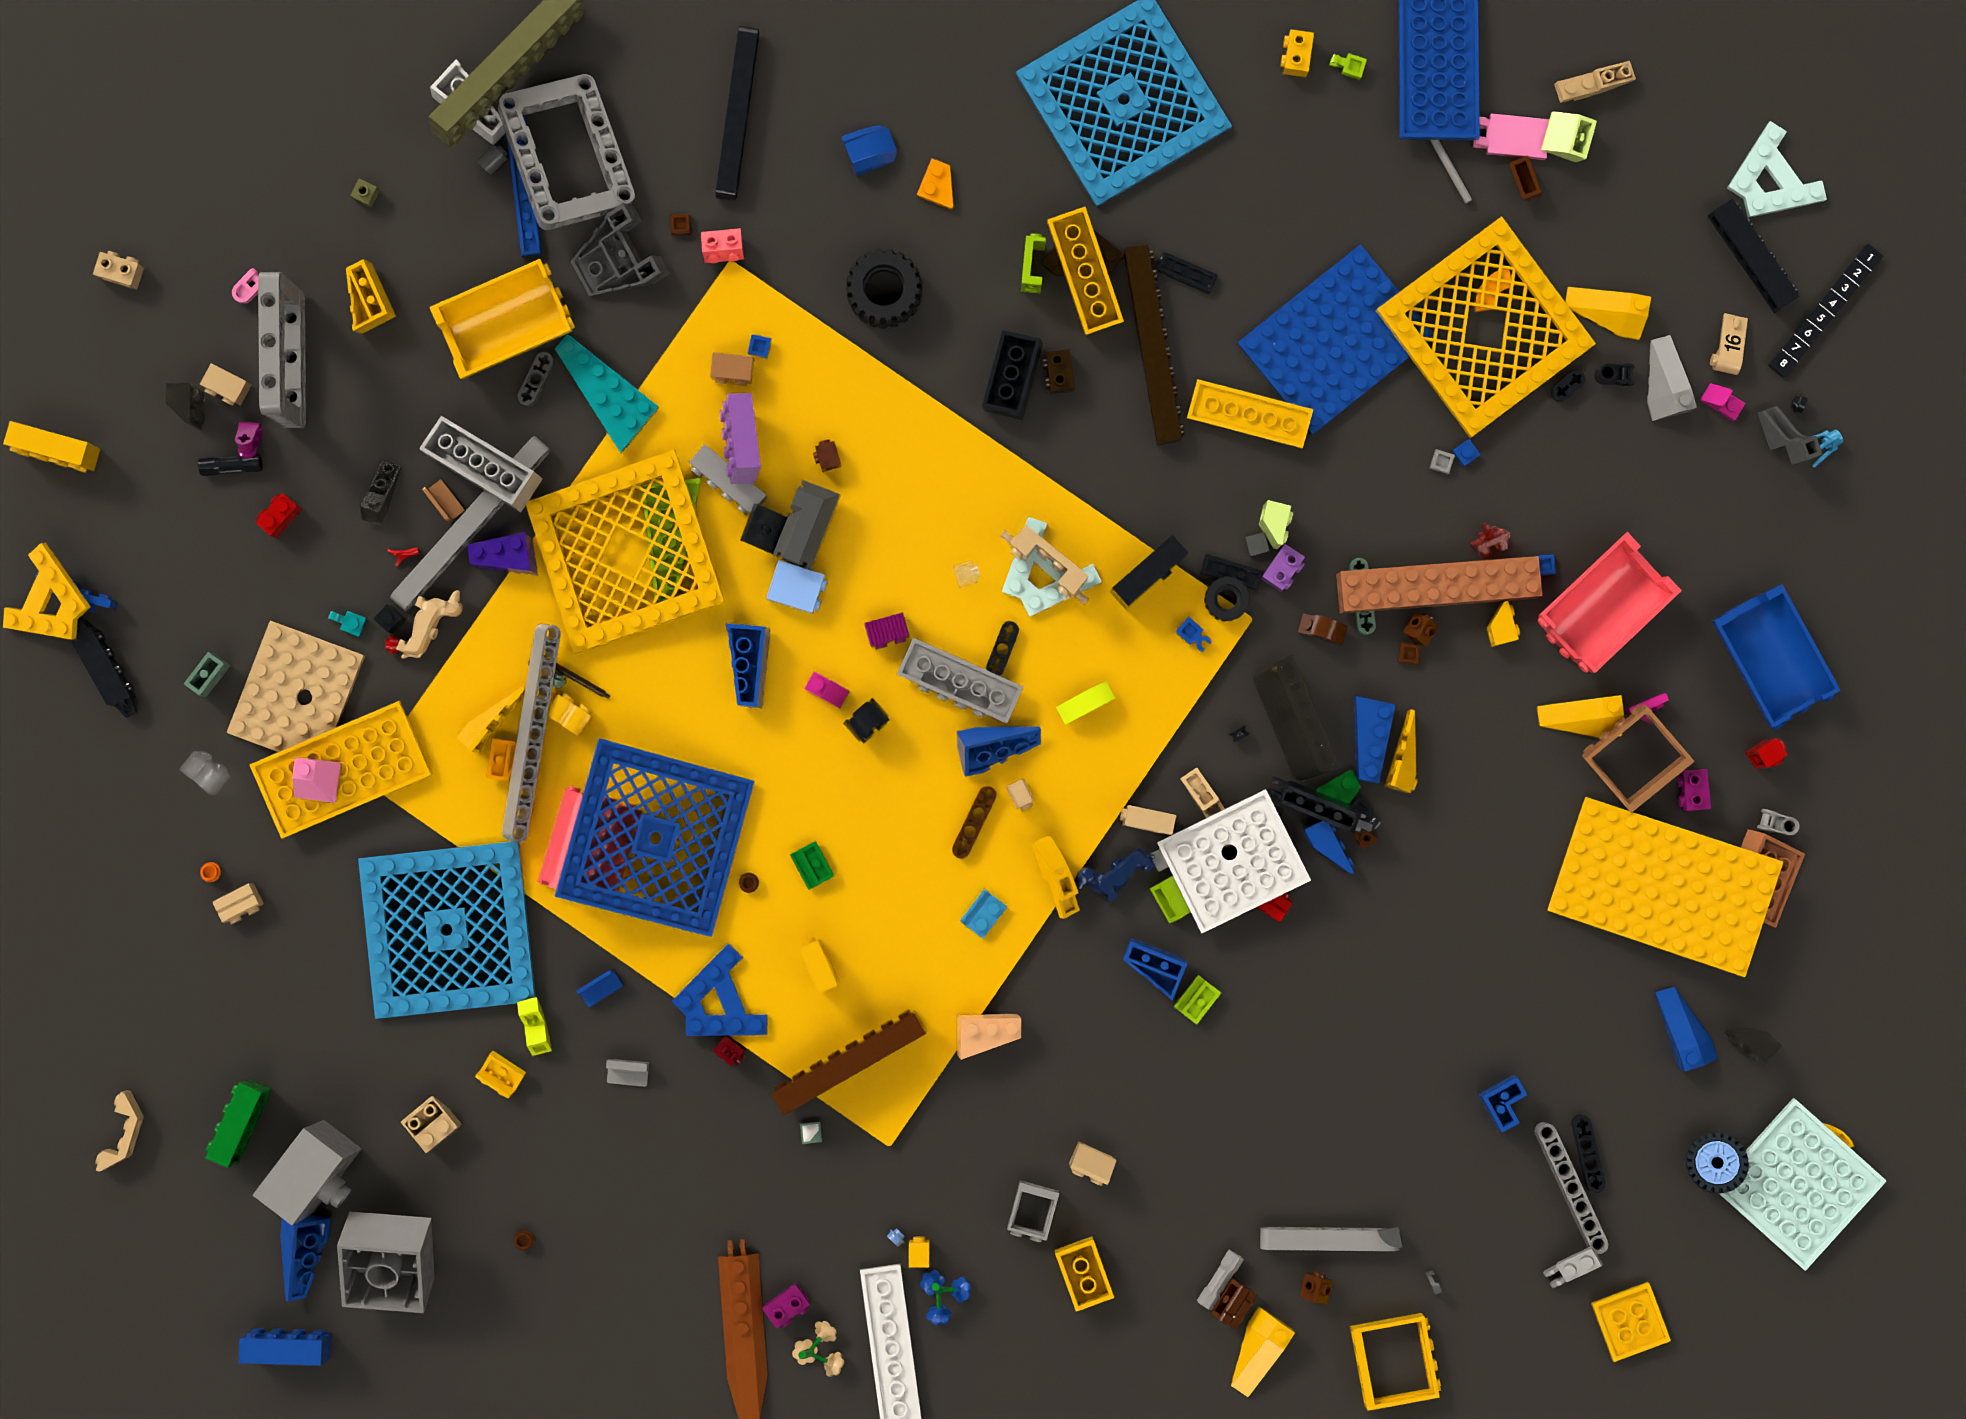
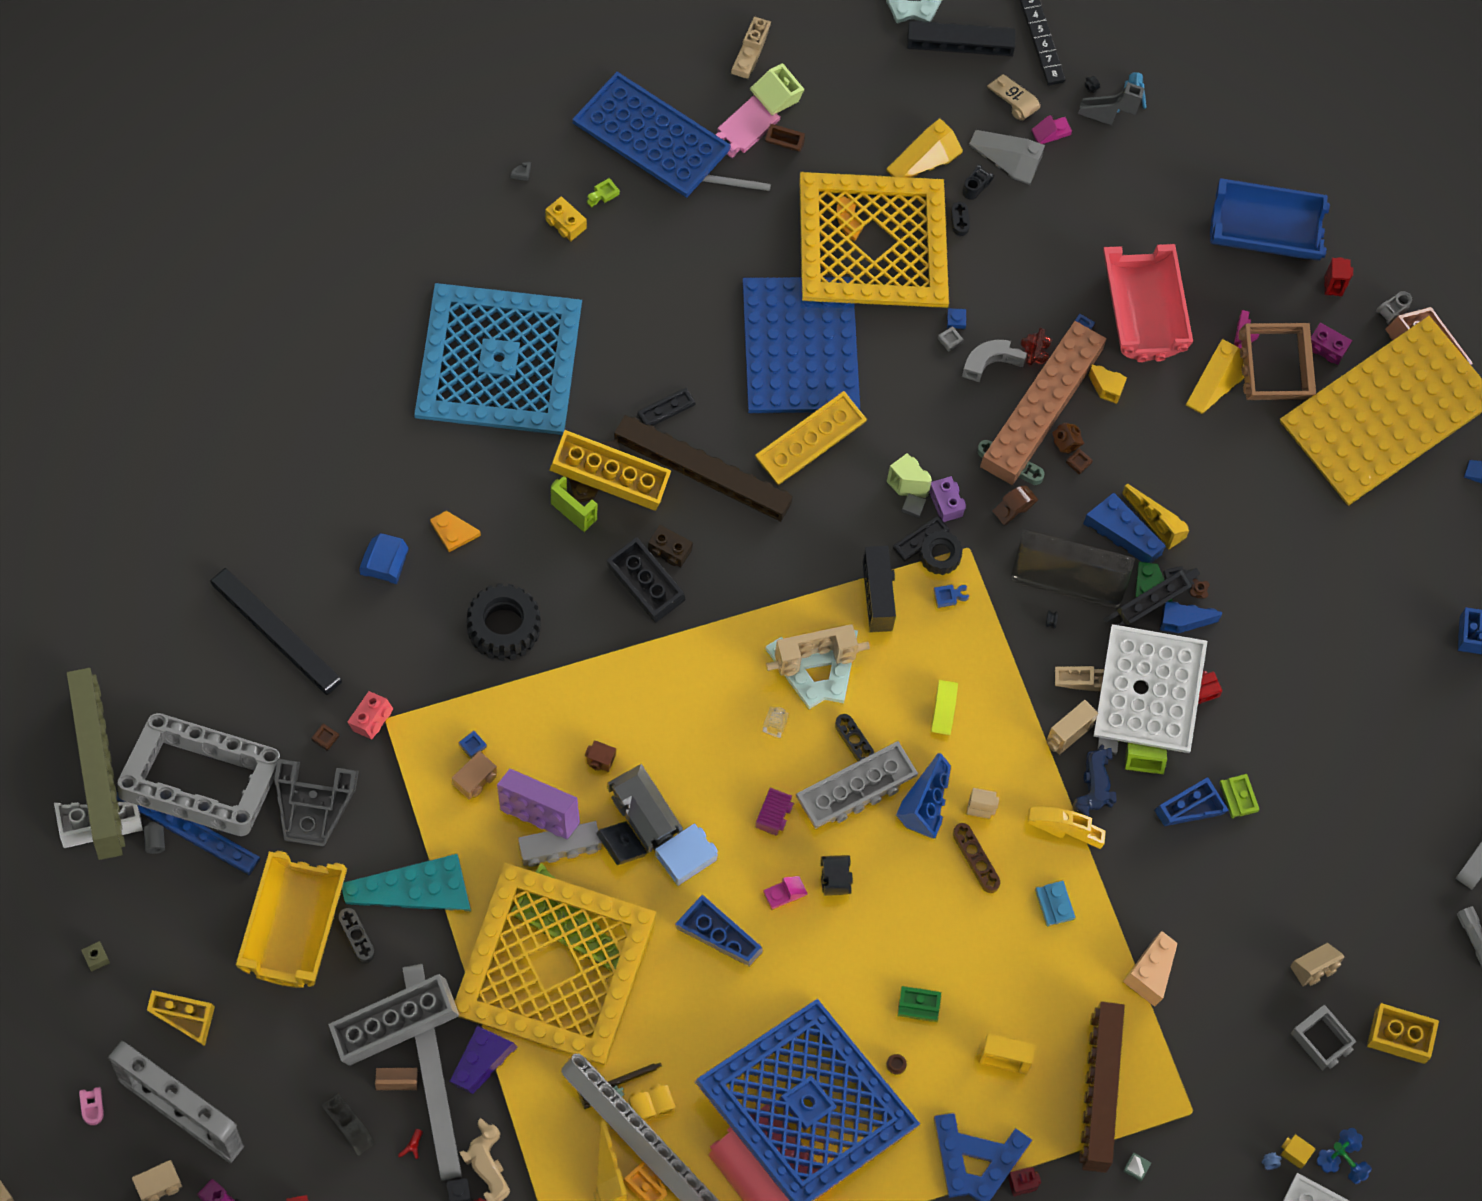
camera: 55 degrees left, 20 degrees down
(1452, 504) = (991, 352): none -> light grey arch

